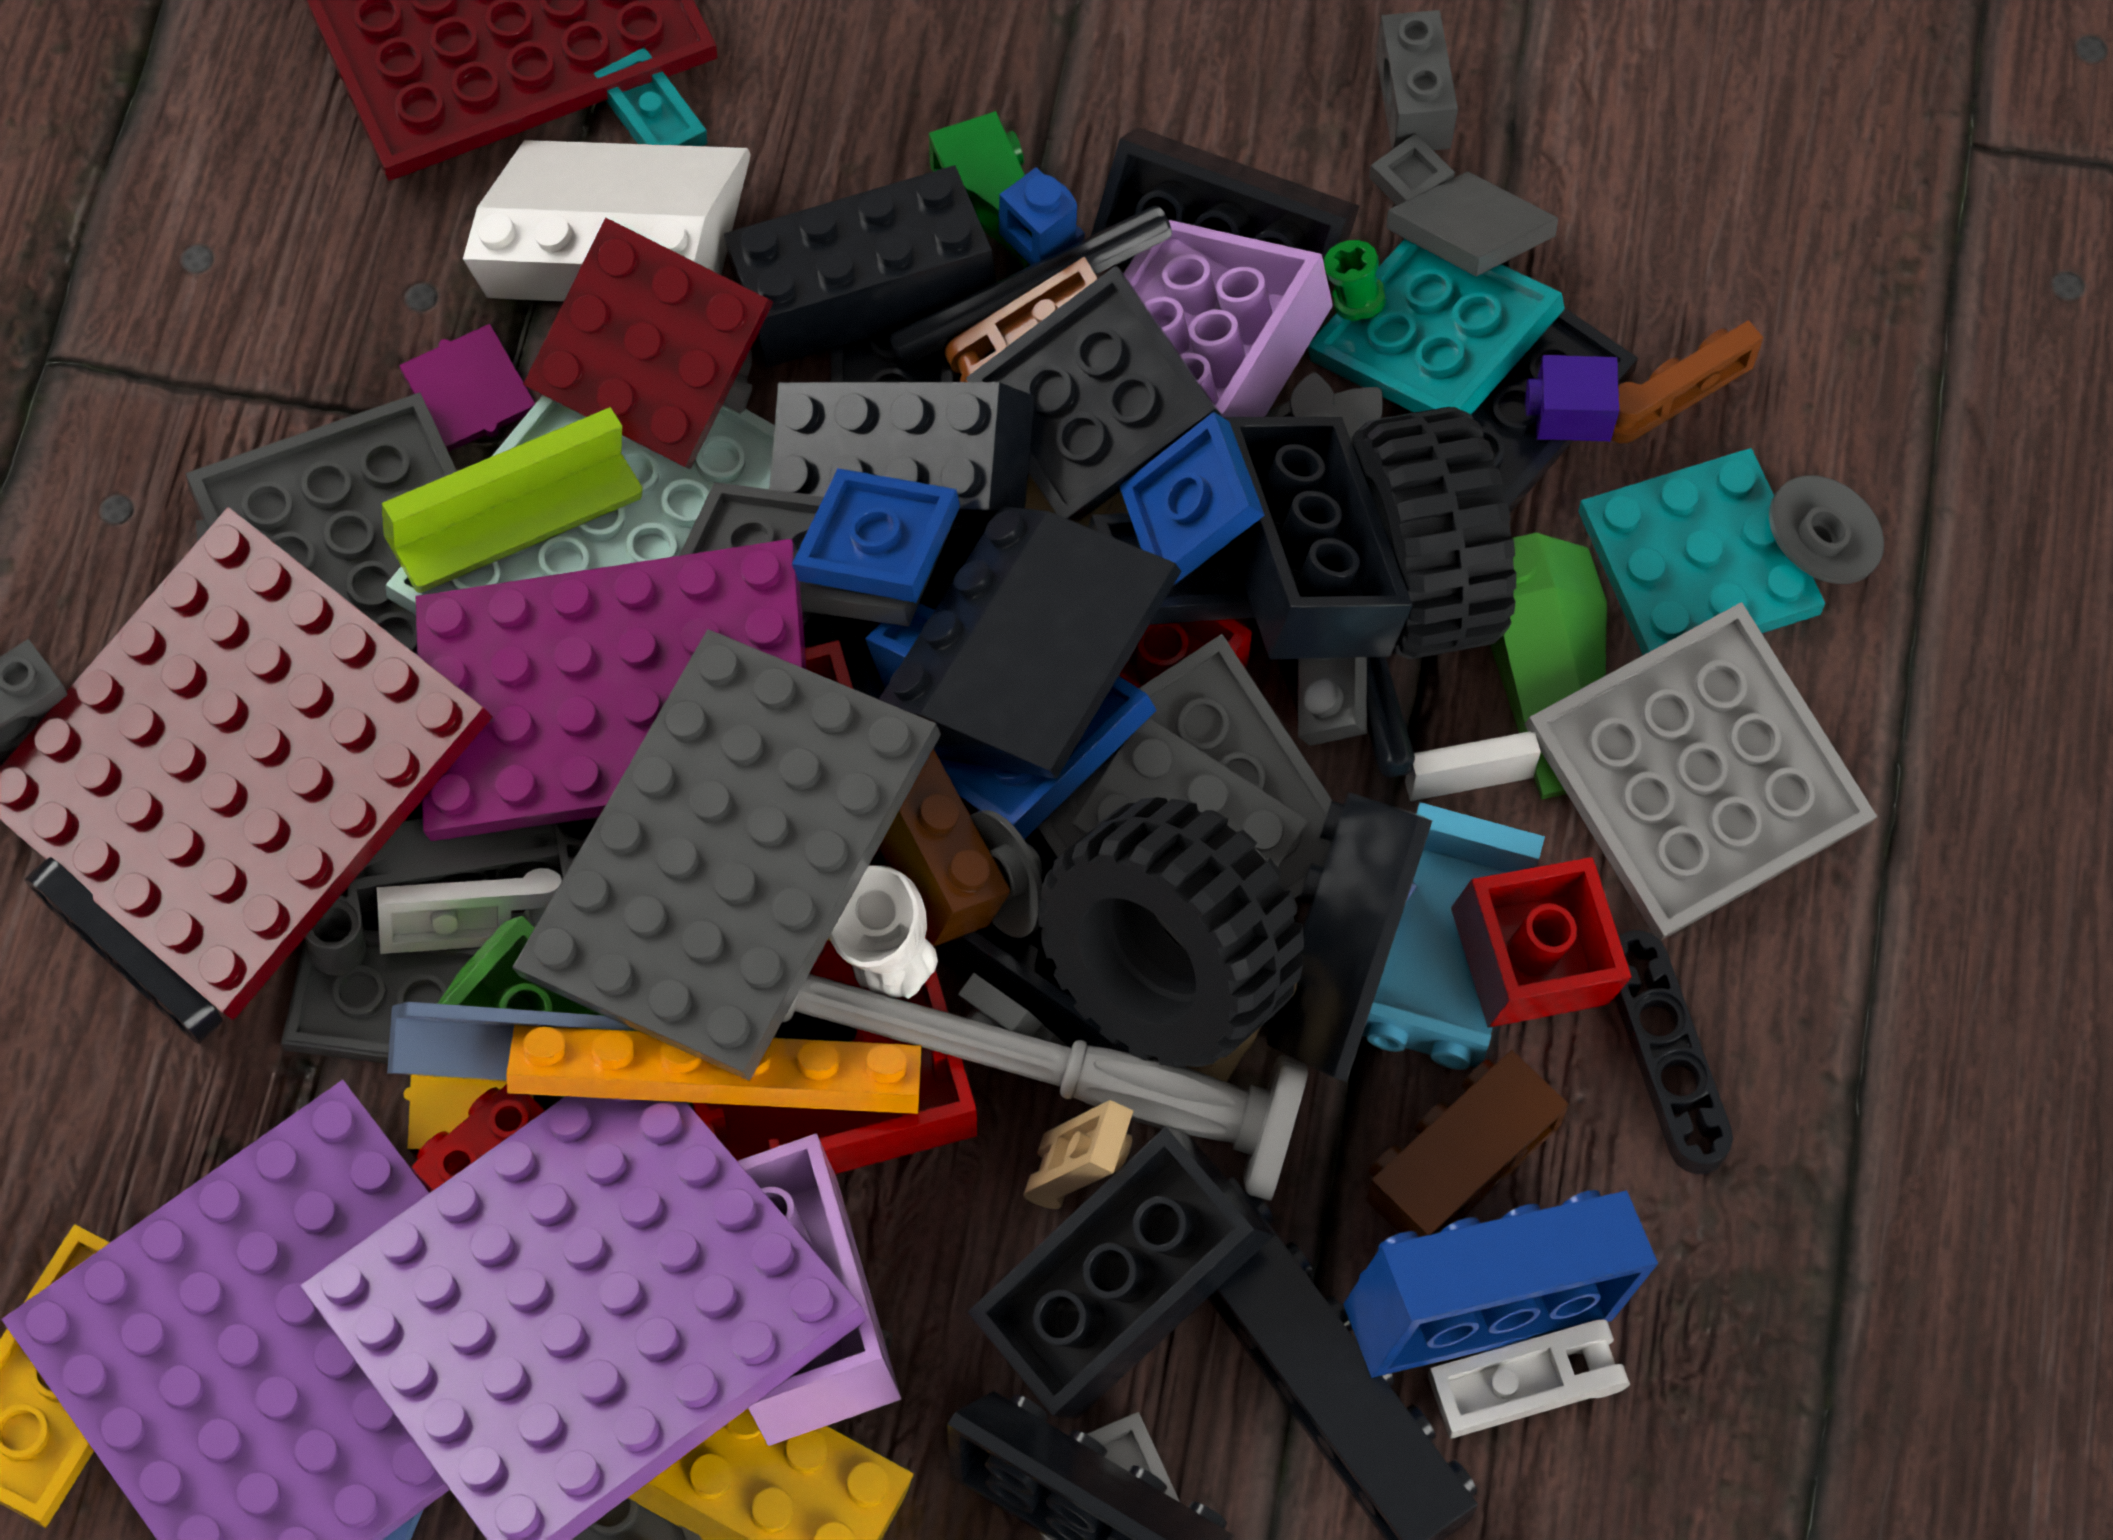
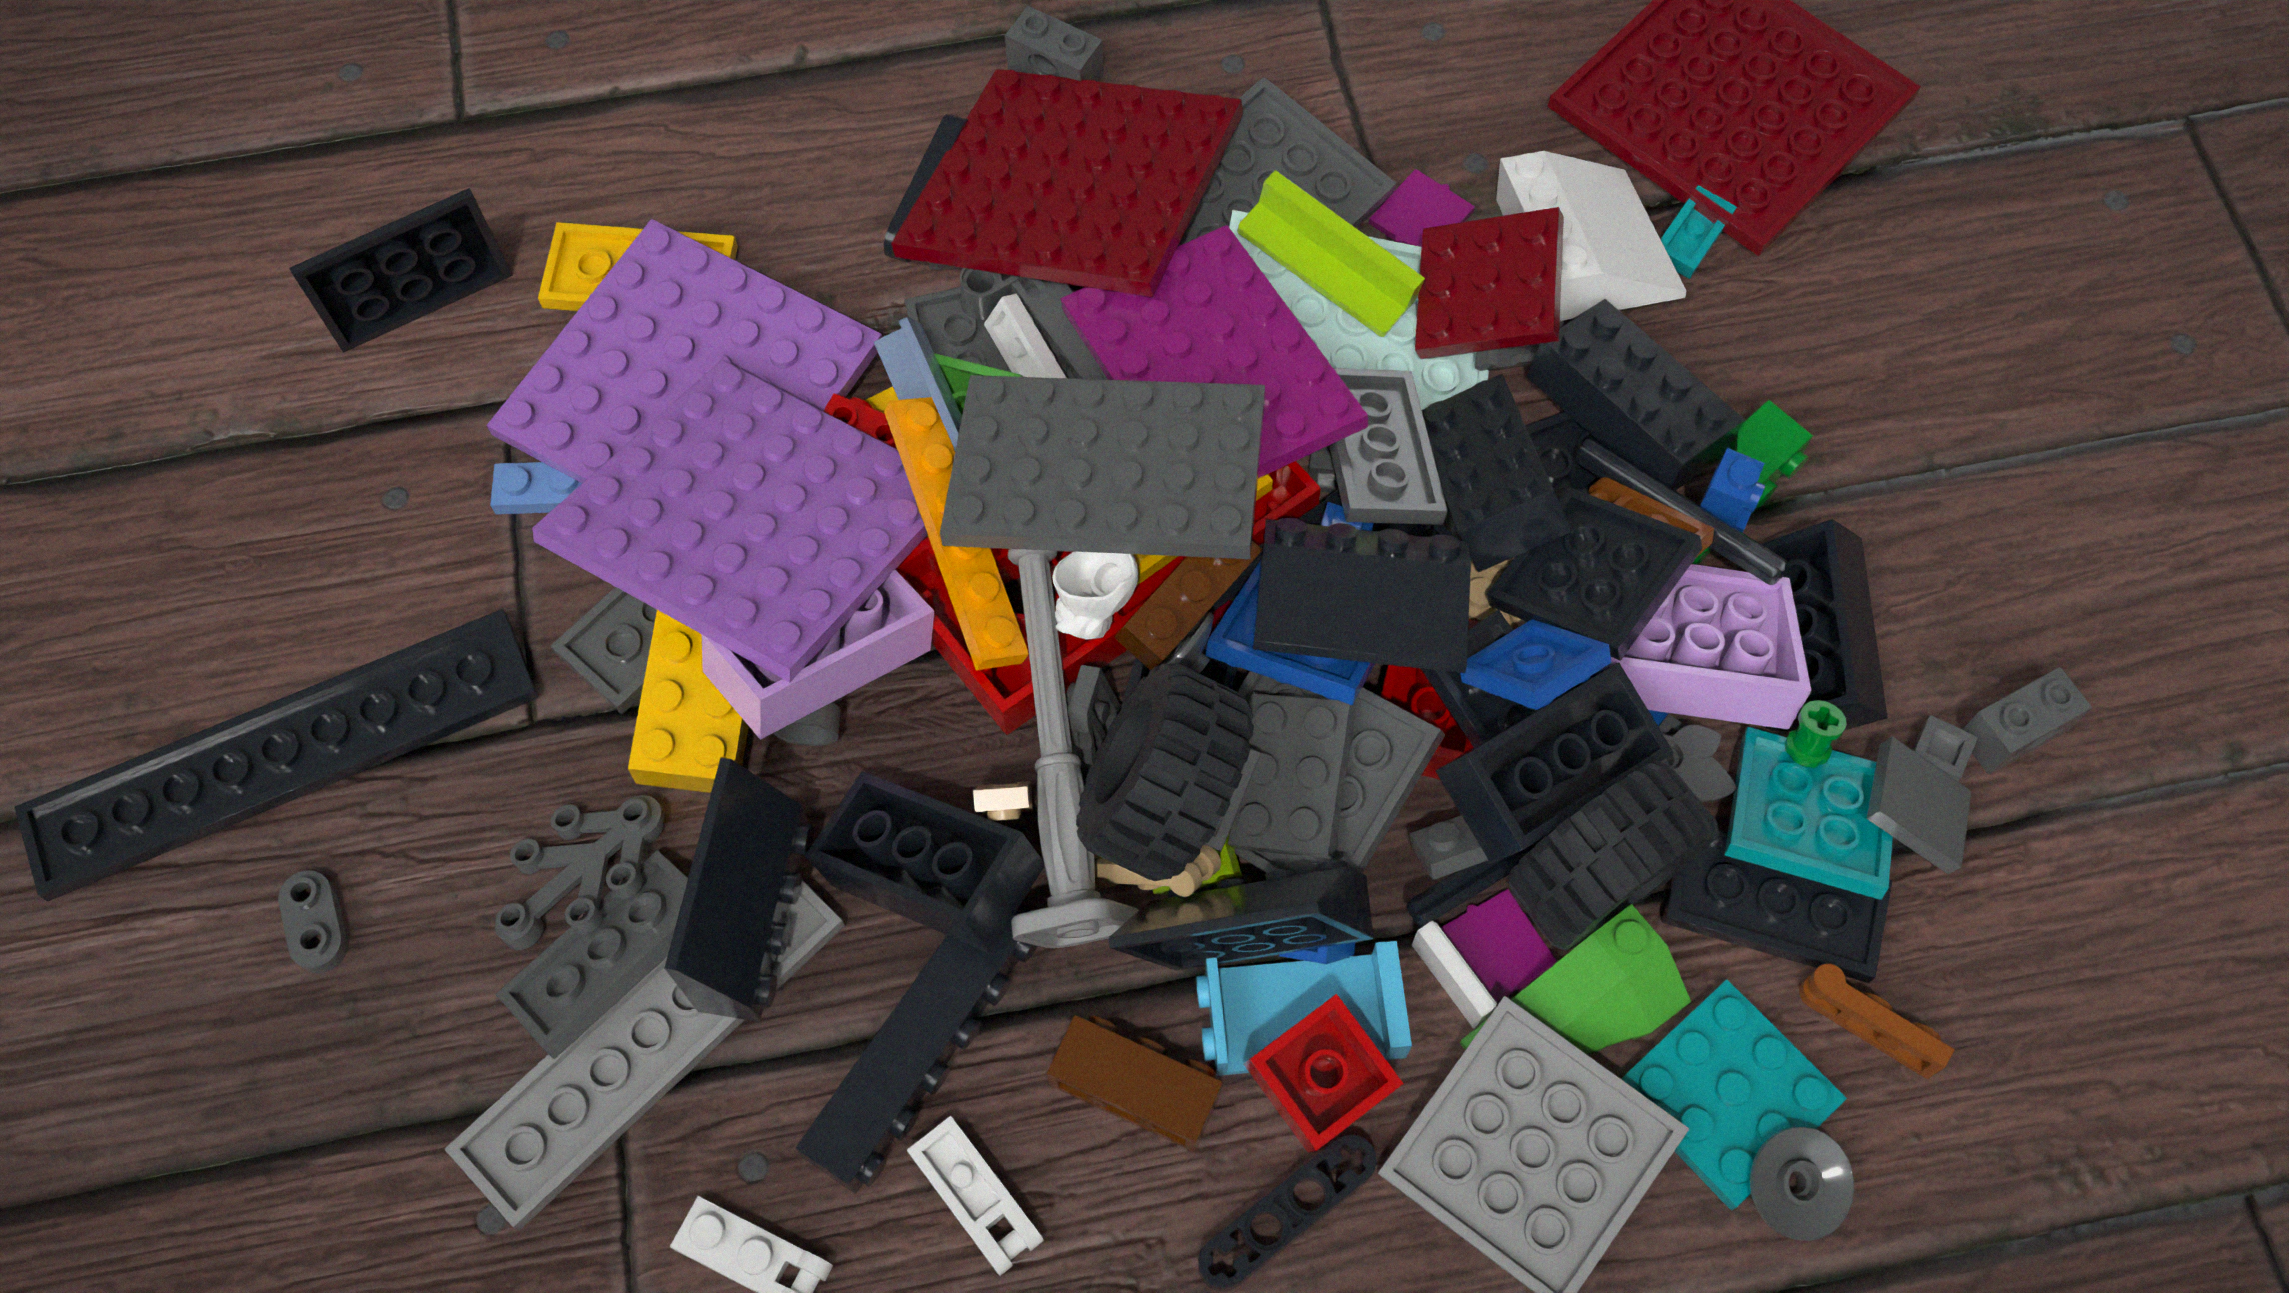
camera: 70 degrees right, 0 degrees up
(876, 535) = (1399, 468): blue plate -> none
(1453, 704) = (1500, 945): none -> magenta piece
(1498, 1281) = (1022, 1135): blue brick -> none
(1574, 398) = (1803, 933): dark purple brick -> none

